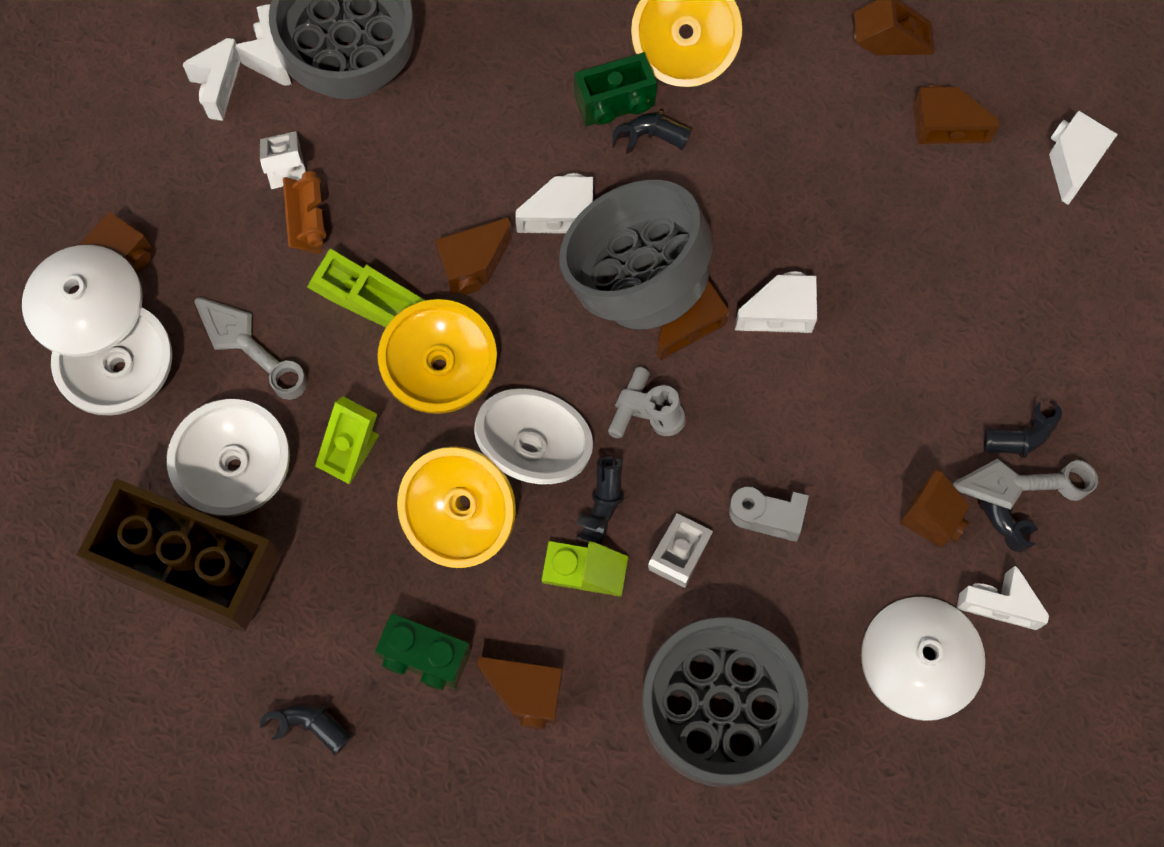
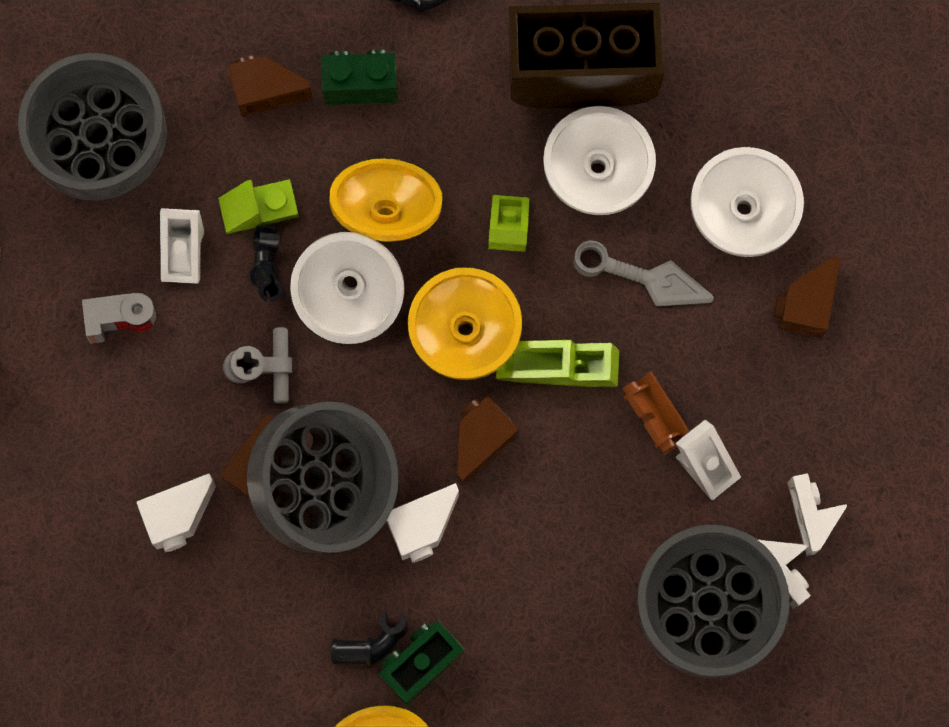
camera: 155 degrees right, 5 degrees up
(92, 317) = (796, 259): white dish -> none

